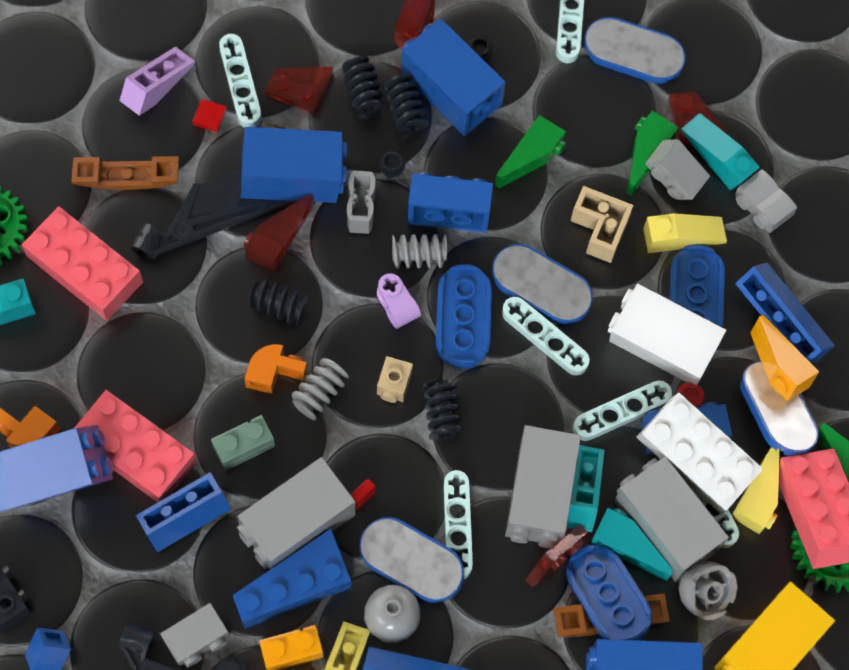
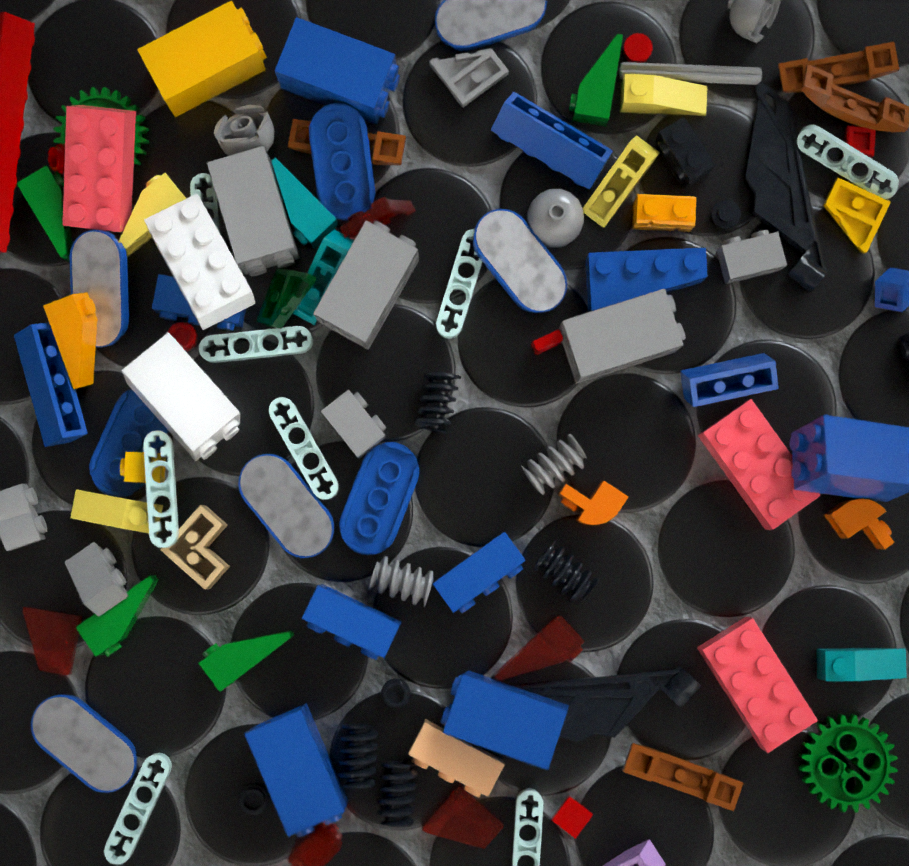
camera: 160 degrees left, 15 degrees up
(243, 443) = (648, 433): sand green brick -> none
(350, 123) = (456, 759): none -> light nougat brick
(354, 279) = (480, 573): none -> blue brick
(361, 200) = (441, 663): light grey brick -> none
(394, 380) = (475, 449): tan brick -> none
(399, 305) = (443, 528): lavender piece -> none
(509, 368) = (354, 424): none -> light grey brick
(613, 455) = (284, 296): none -> dark green wing
(656, 249) = (166, 488): none -> light aqua beam
(675, 270) = (133, 468): none -> yellow brick
(720, 151) = (41, 587): teal slope -> none

